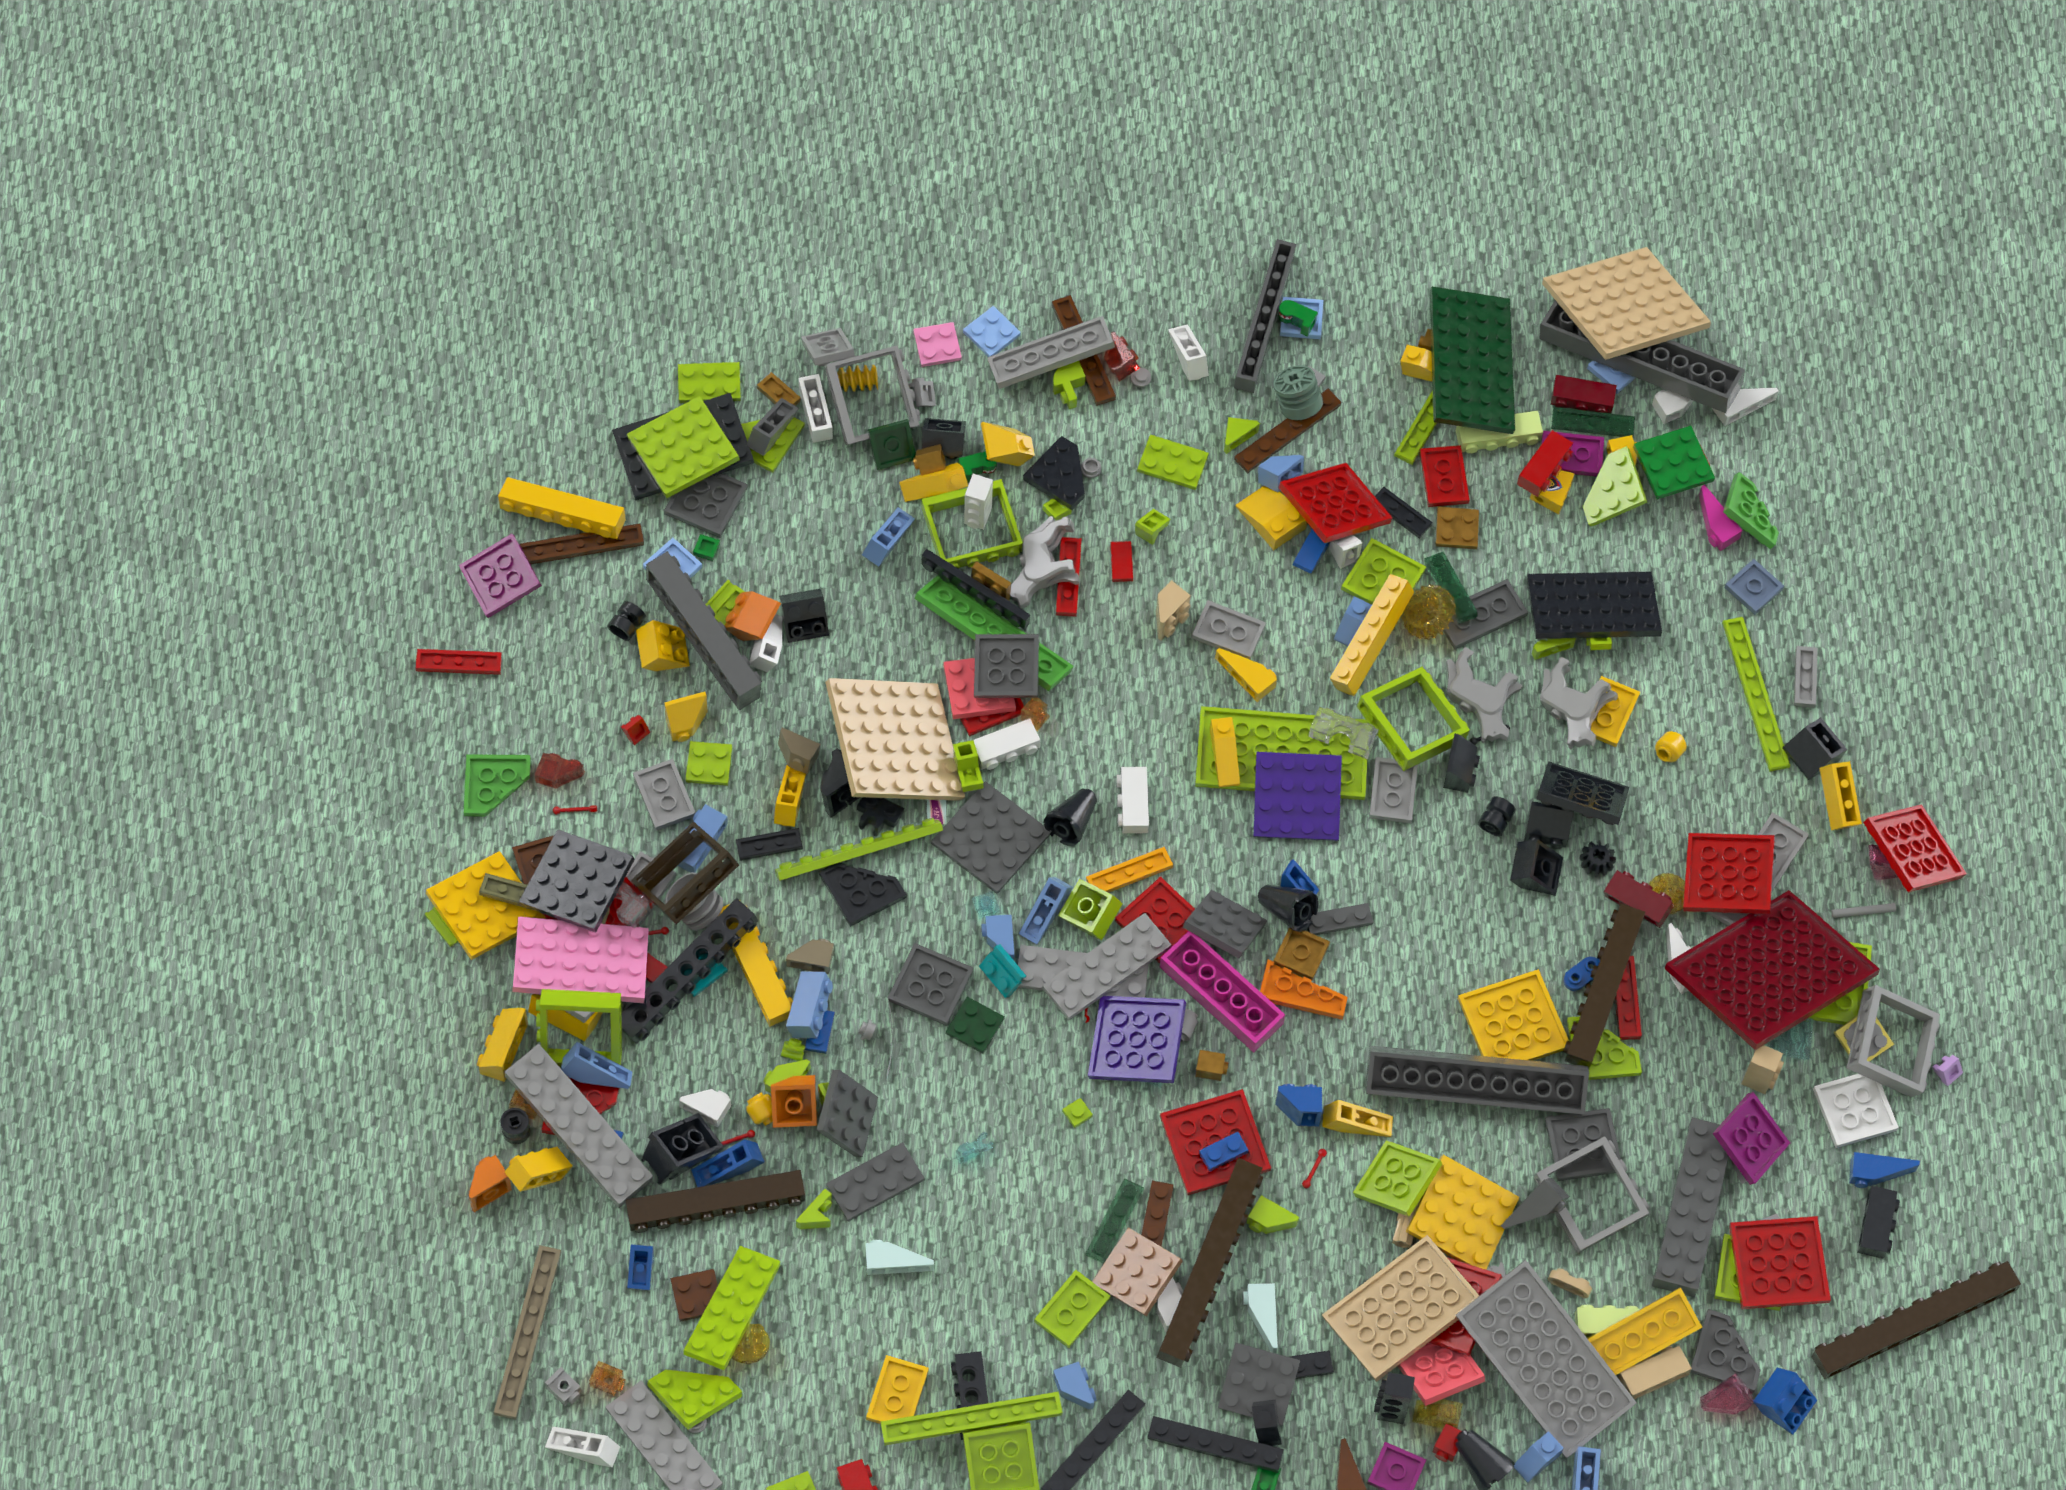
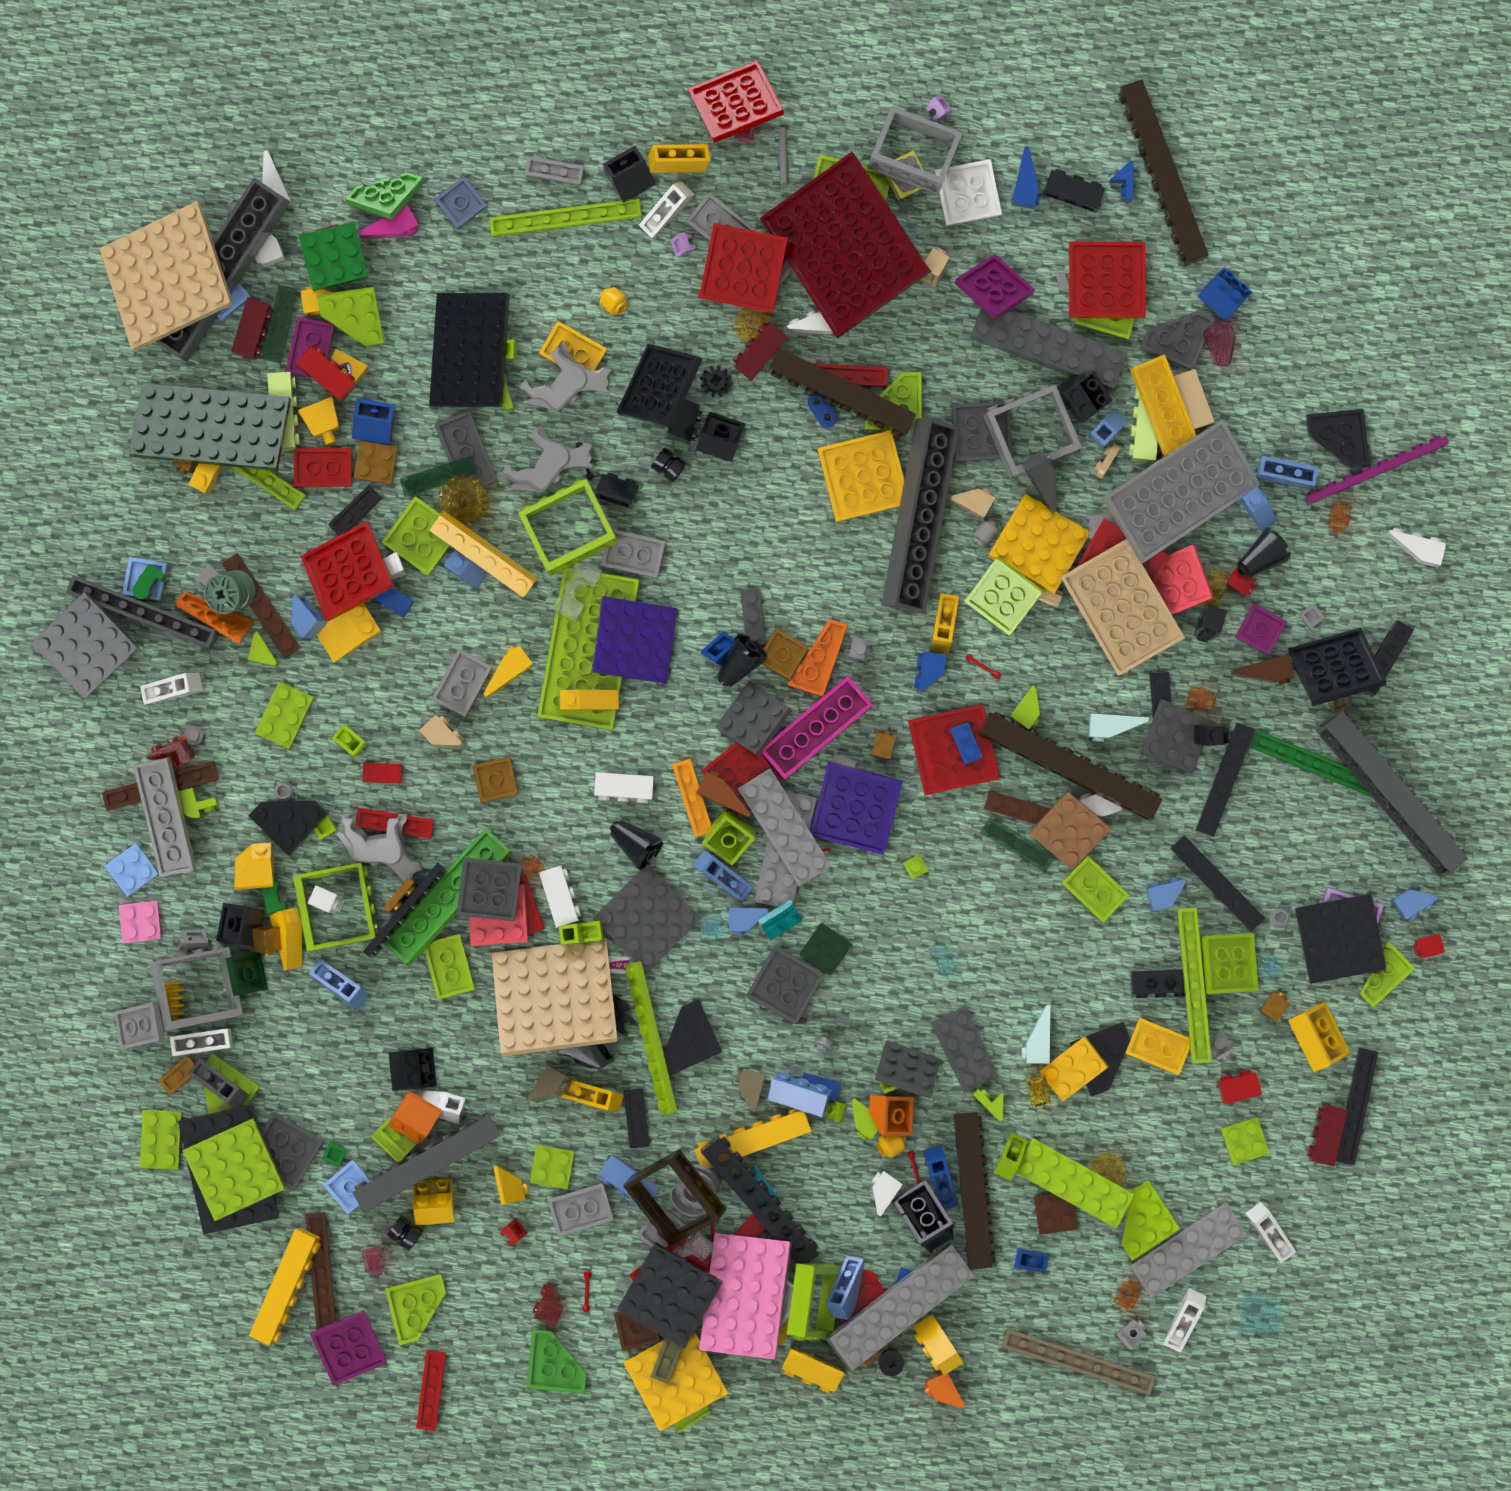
camera: 85 degrees left, 20 degrees up
(549, 638) = (414, 1305): none -> lime plate
(595, 591) = (374, 1260): none -> clear pink slope
(757, 1238) = (1011, 1156): none -> lime slope
(836, 1257) = (1037, 1090): none -> clear yellow slope
(863, 1298) = (1074, 1068): none -> yellow plate
(879, 1329) = (1111, 1046): none -> black plate
(903, 1463) = (1221, 1046): none -> light grey bracket
(918, 642) = (449, 967): none -> lime plate
(1126, 671) = (495, 779): none -> pearl gold plate
(1139, 894) = (718, 791): none -> dark orange slope
(1224, 264) = (85, 644): none -> plate
(1262, 397) = (231, 625): none -> orange wing
(1307, 1407) = (1200, 698): none -> clear orange brick
(1316, 1031) = (859, 650): none -> light grey brick
(1467, 1156) = (985, 533): none -> light grey brick
(1495, 470) = (322, 419): none -> yellow torso
(1501, 518) = (373, 421): none -> blue slope
(1501, 1142) = (974, 501): none -> tan slope
(1607, 1279) = (1108, 428): none -> medium blue slope
(1641, 1246) = (1084, 395): none -> black slope
(1745, 810) = (681, 244): none -> lavender tile
(1786, 794) = (666, 209): none -> white slope
(1904, 1278) = (1125, 177): none -> blue slope

